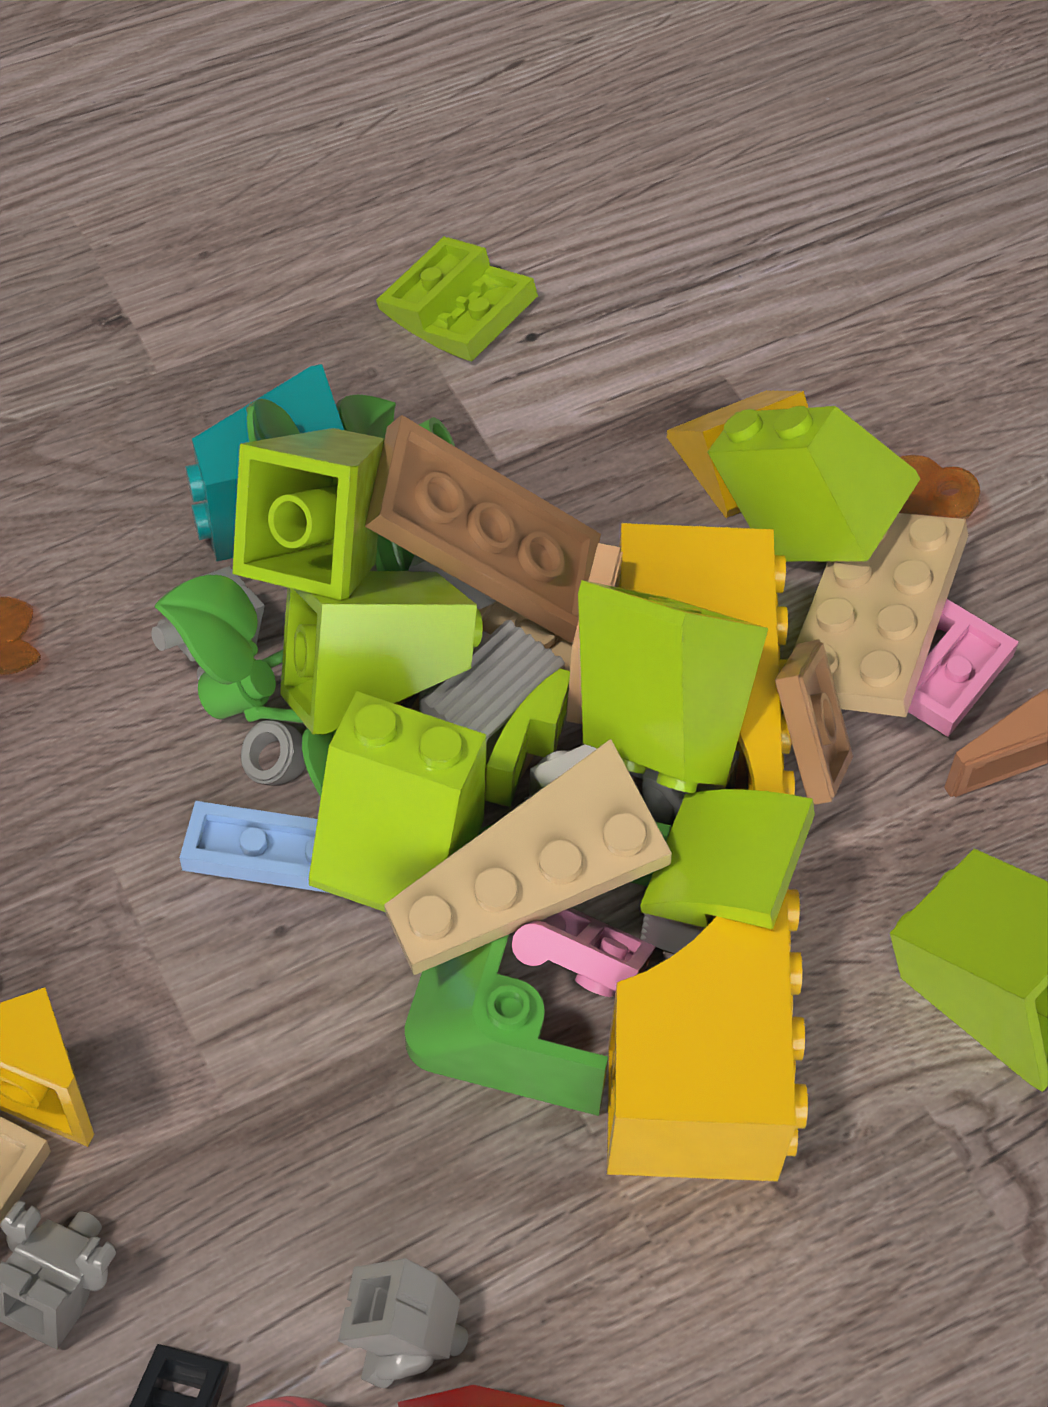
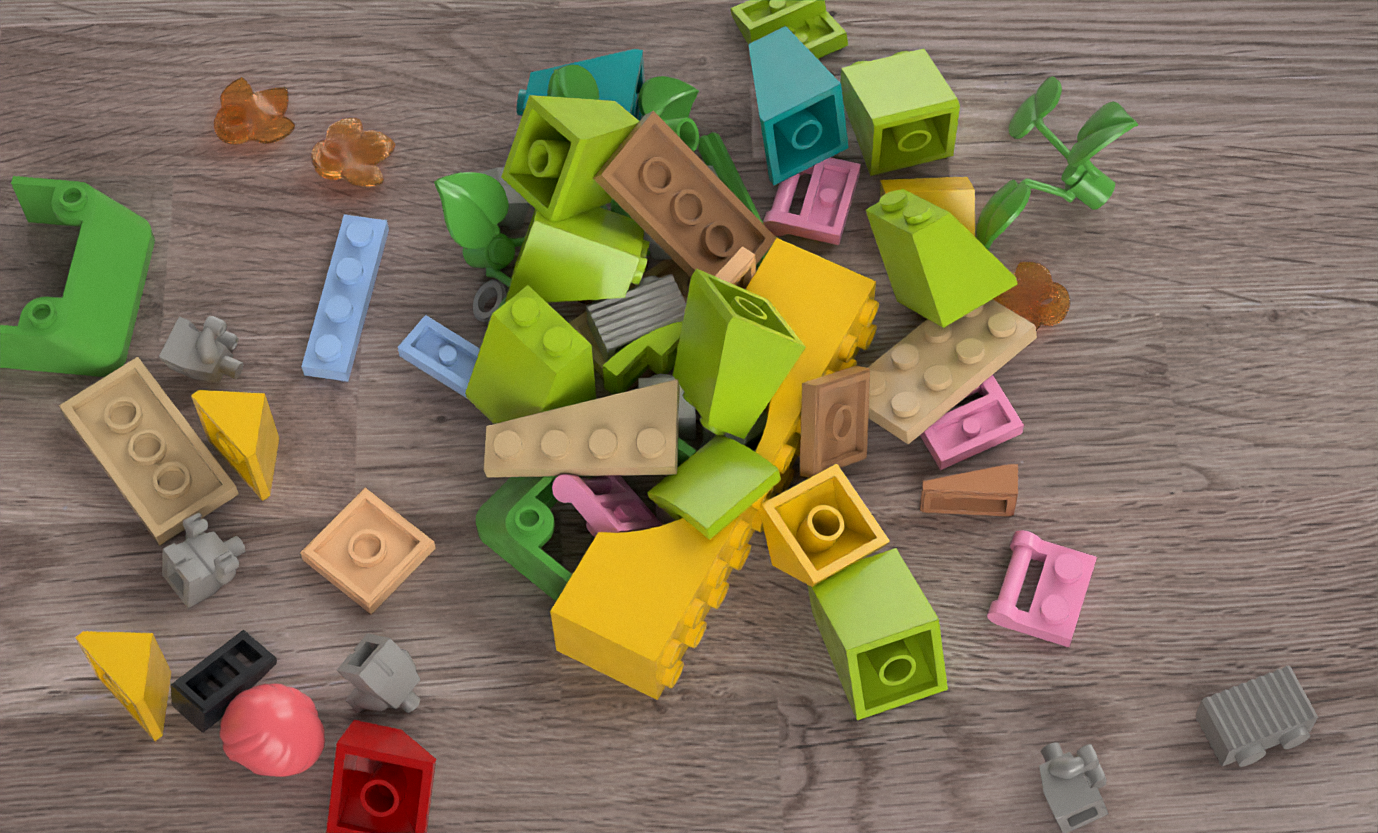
camera: 30 degrees right, 5 degrees up
(67, 826) = (345, 298): none -> light blue plate
(277, 1151) = (368, 550): none -> light nougat tile
(533, 369) = (796, 105): none -> teal slope
(620, 469) = (824, 205): none -> bright pink plate
(653, 339) = (900, 110): none -> lime slope
(872, 865) = (819, 527): none -> yellow slope
(921, 273) = (1080, 176): none -> bright green plant

